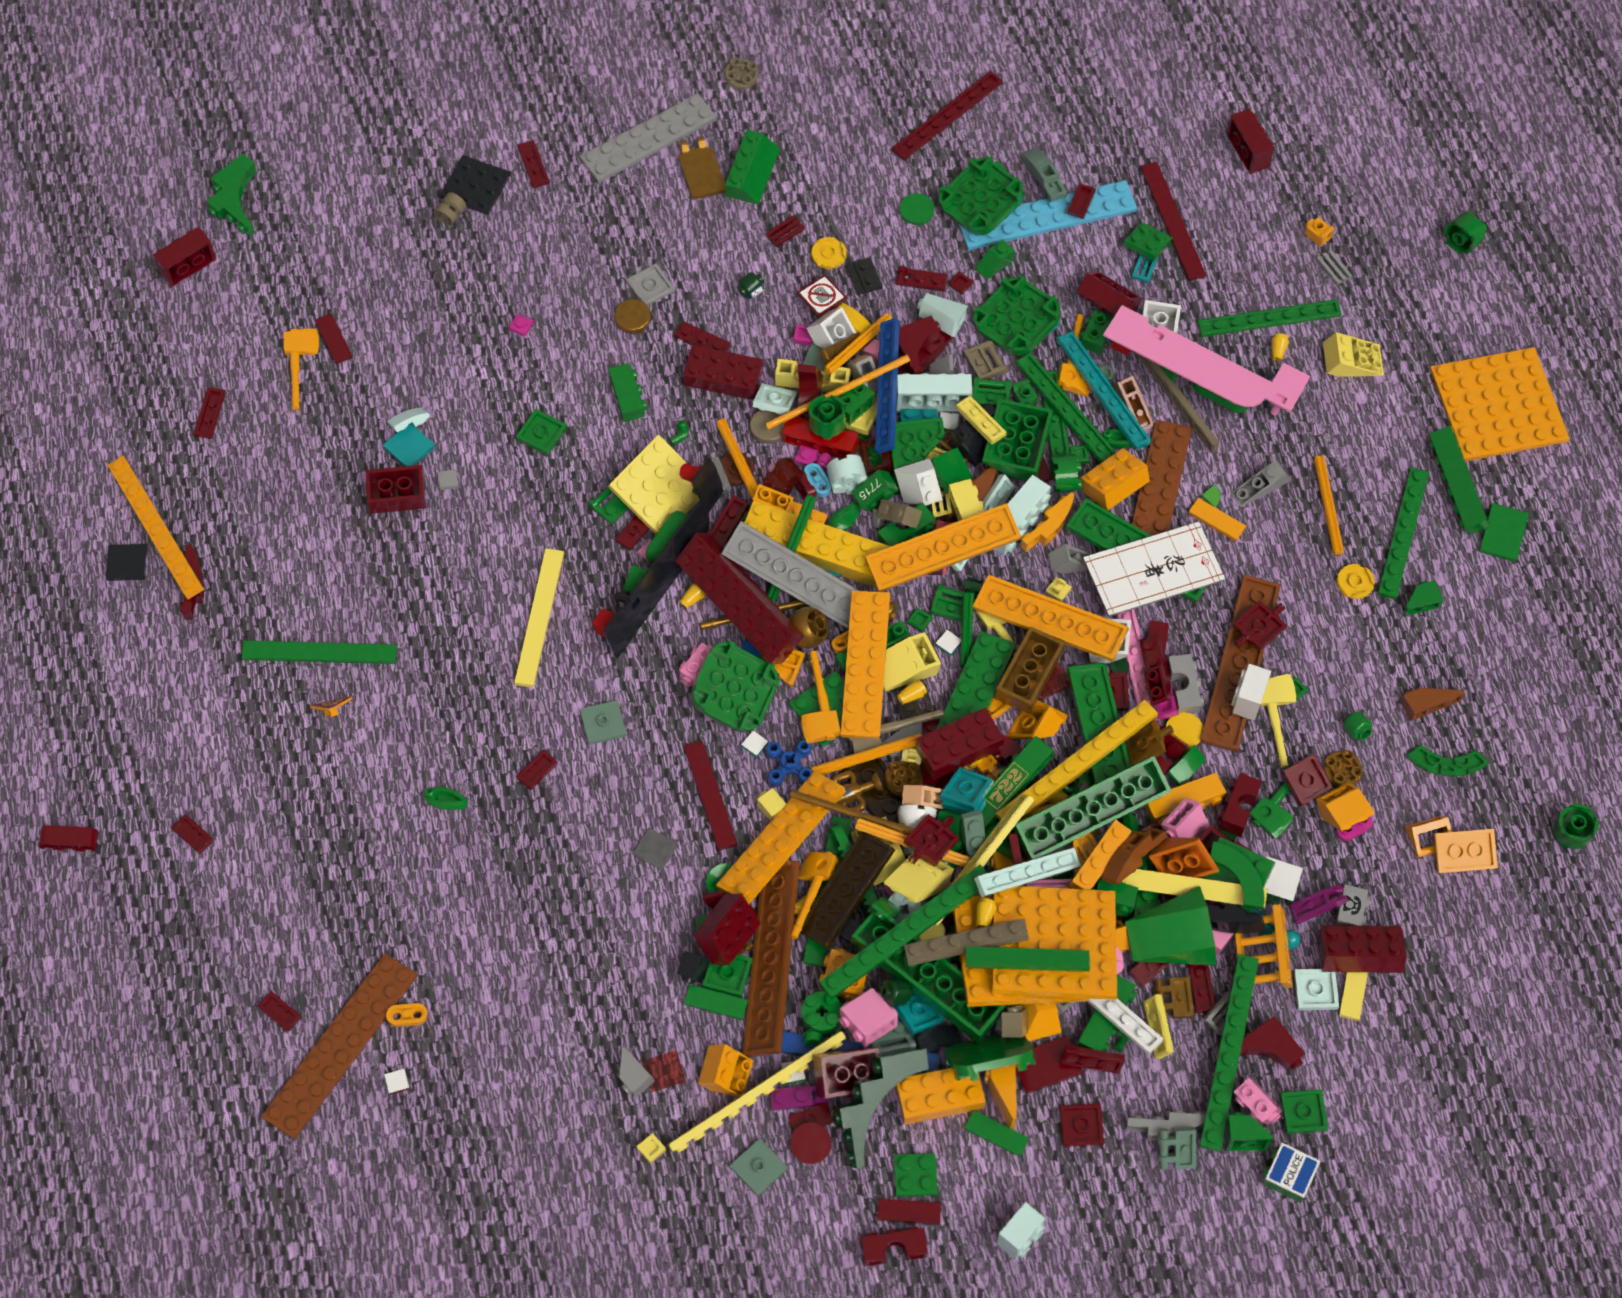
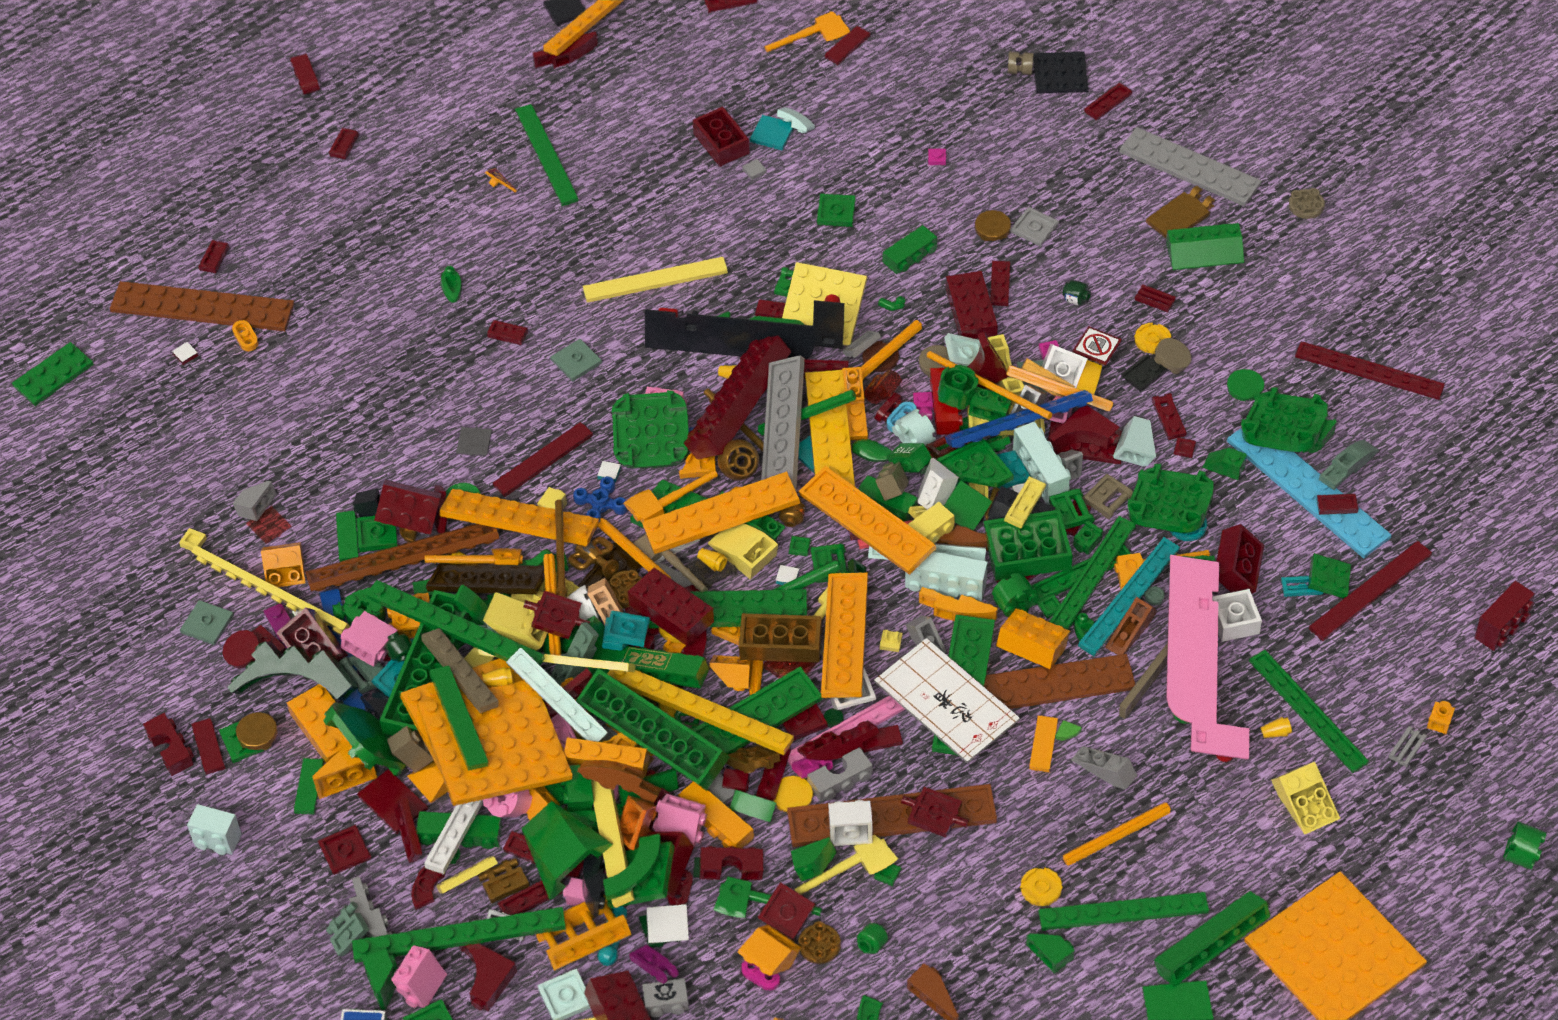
camera: 70 degrees right, 10 degrees down
(352, 1224) = (52, 373): none -> green plate
(861, 245) = (1172, 355): none -> dark tan tile
(922, 1157) = (256, 731): none -> pearl gold tile
(1149, 1067) = (424, 887): none -> dark red tile
(1264, 741) = (813, 858): none -> green slope

